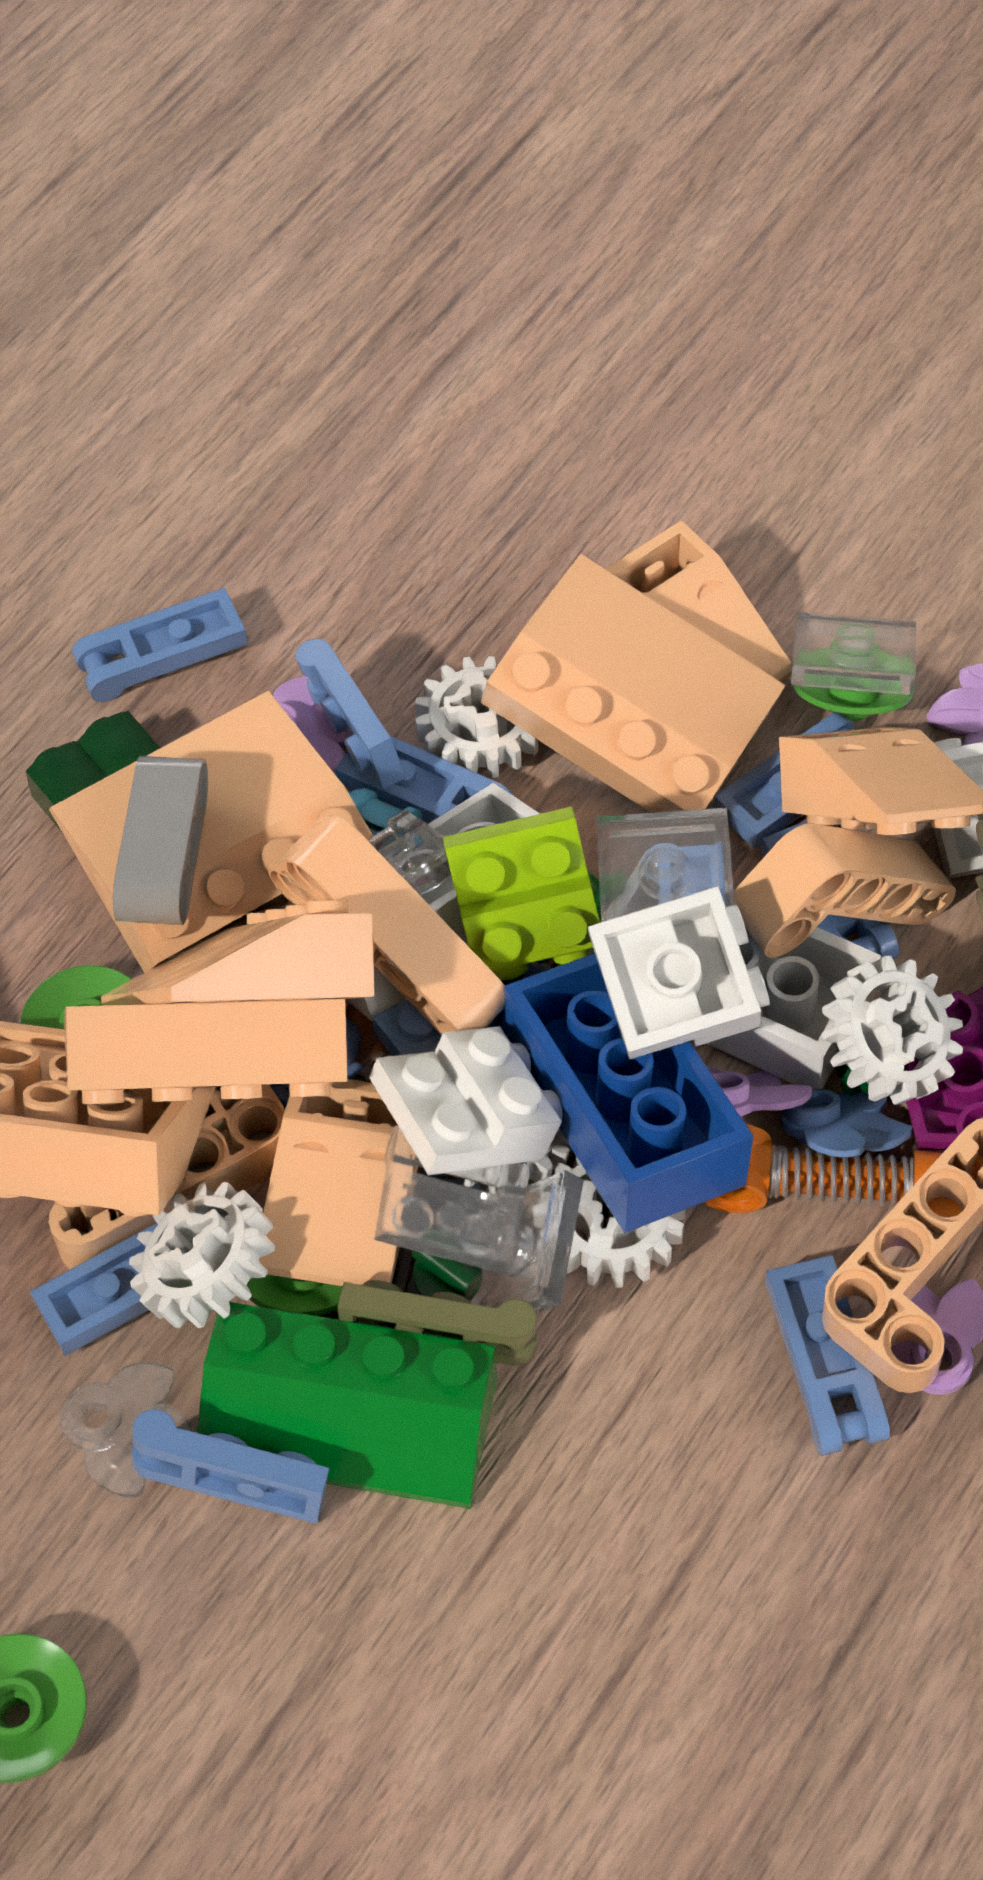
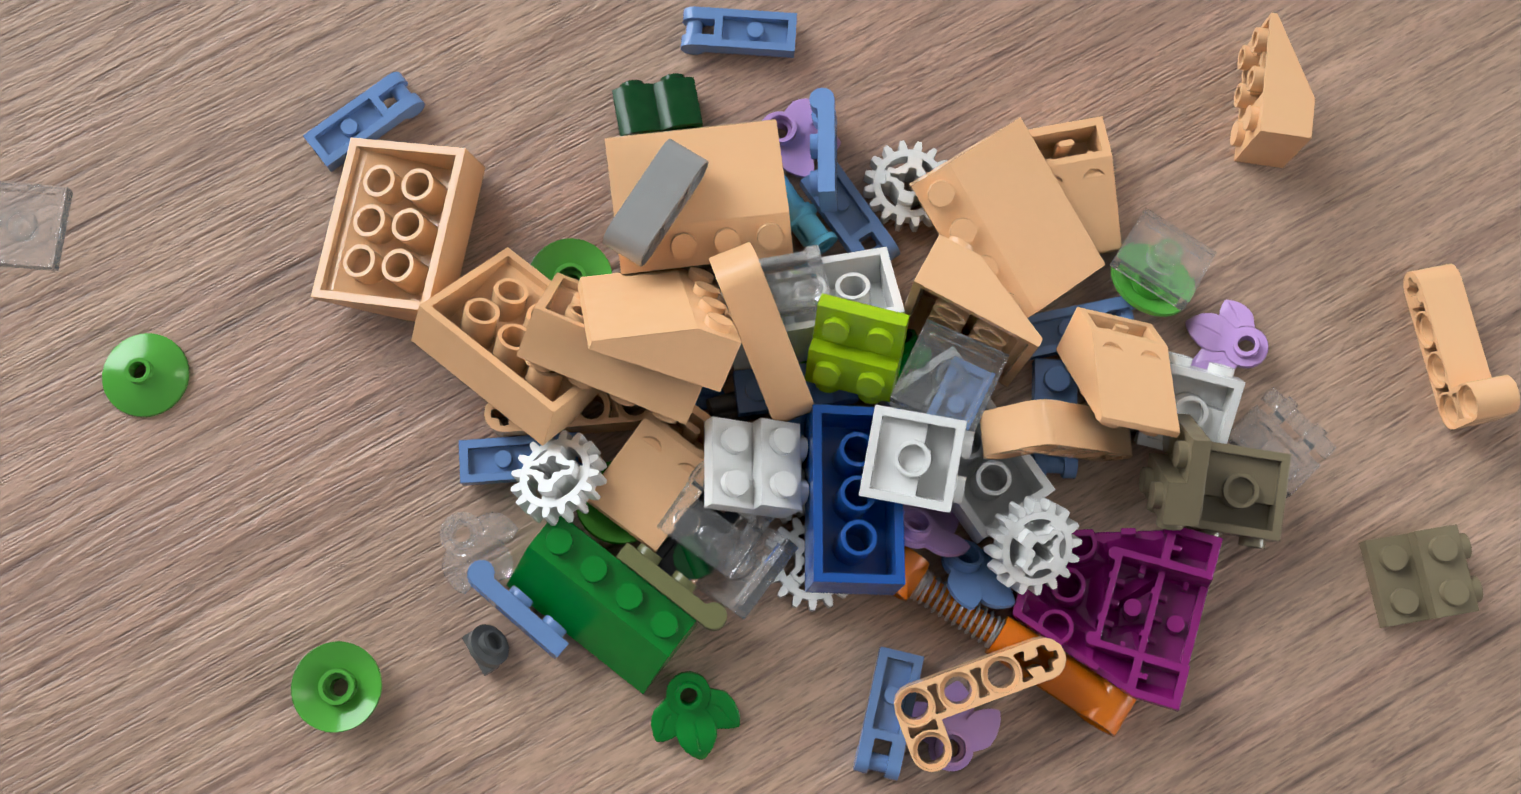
camera: 20 degrees right, 20 degrees up
(210, 1551) = (487, 647): none -> dark grey plate
(565, 1500) = (694, 721): none -> green plate
(649, 755) = (966, 296): none -> light nougat slope
(877, 423) = (1271, 100): none -> light nougat slope

